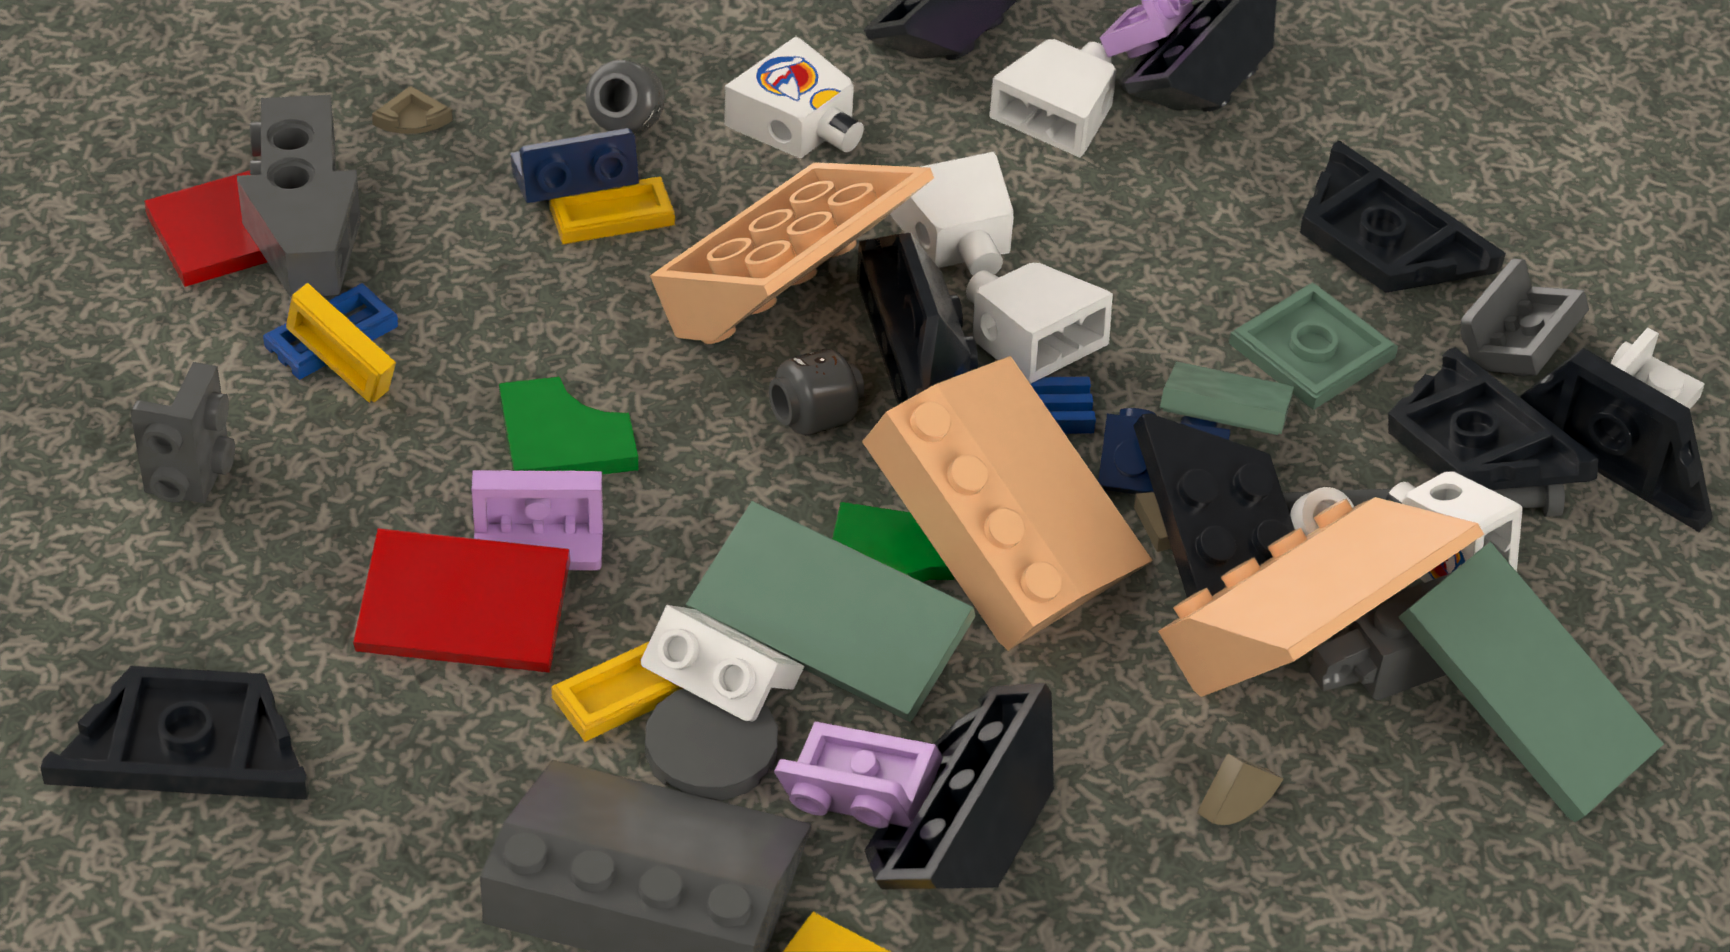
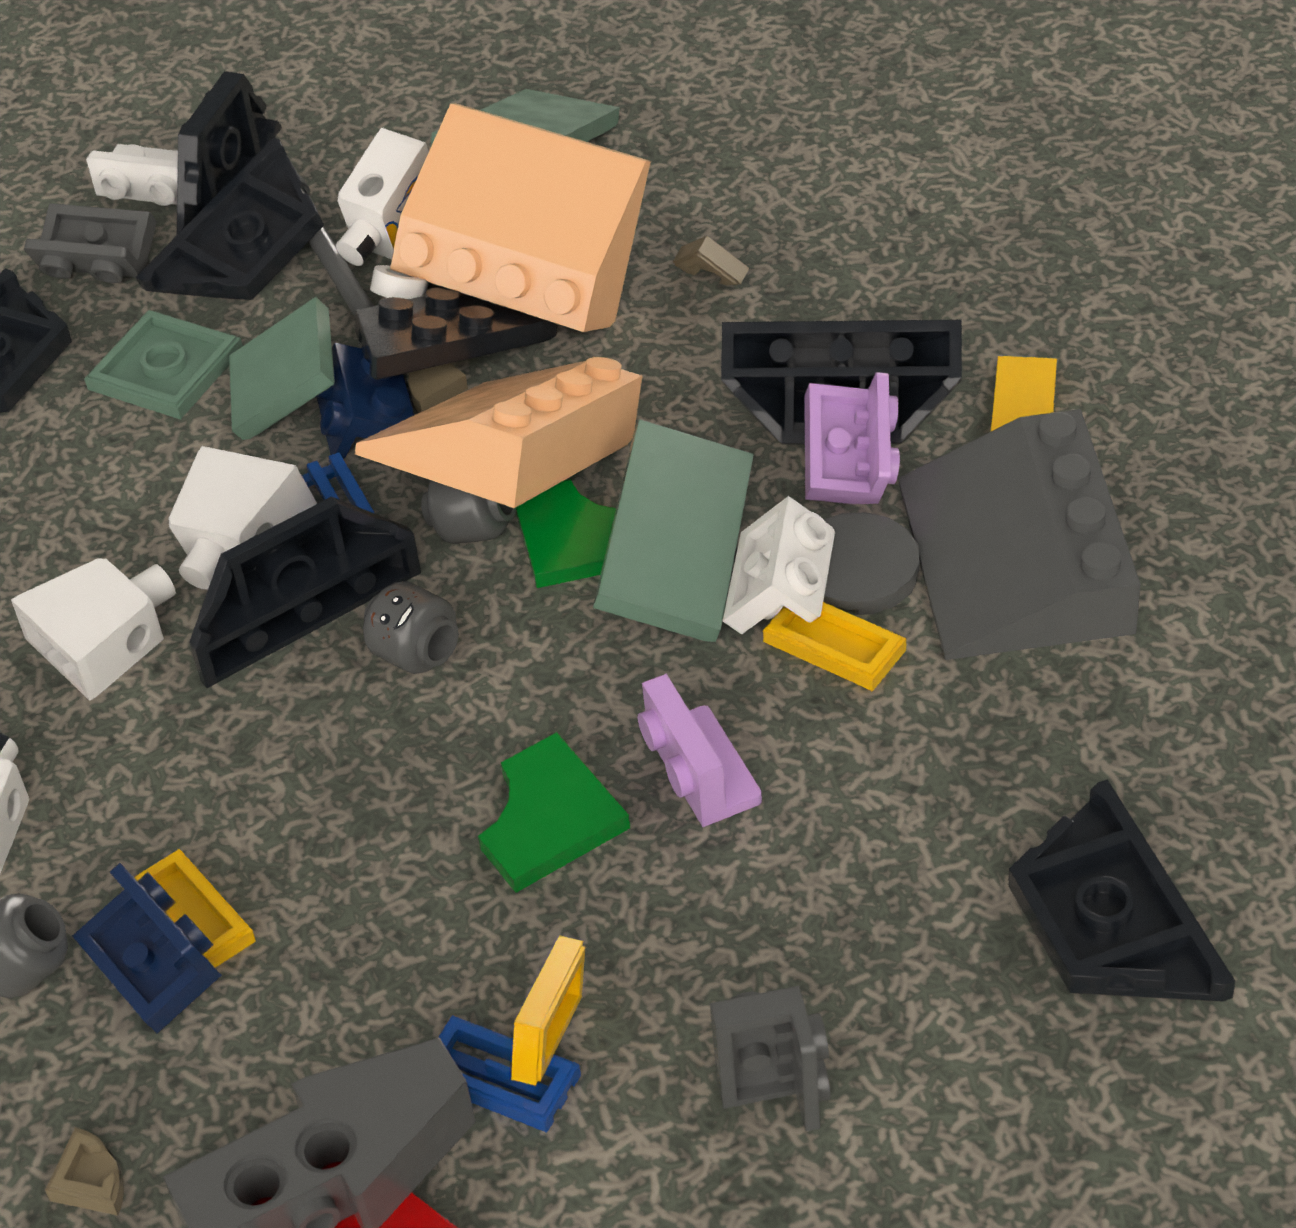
camera: 105 degrees left, 0 degrees up
(462, 600) = (818, 779): red tile -> none
(778, 244) = (249, 661): light nougat slope -> none

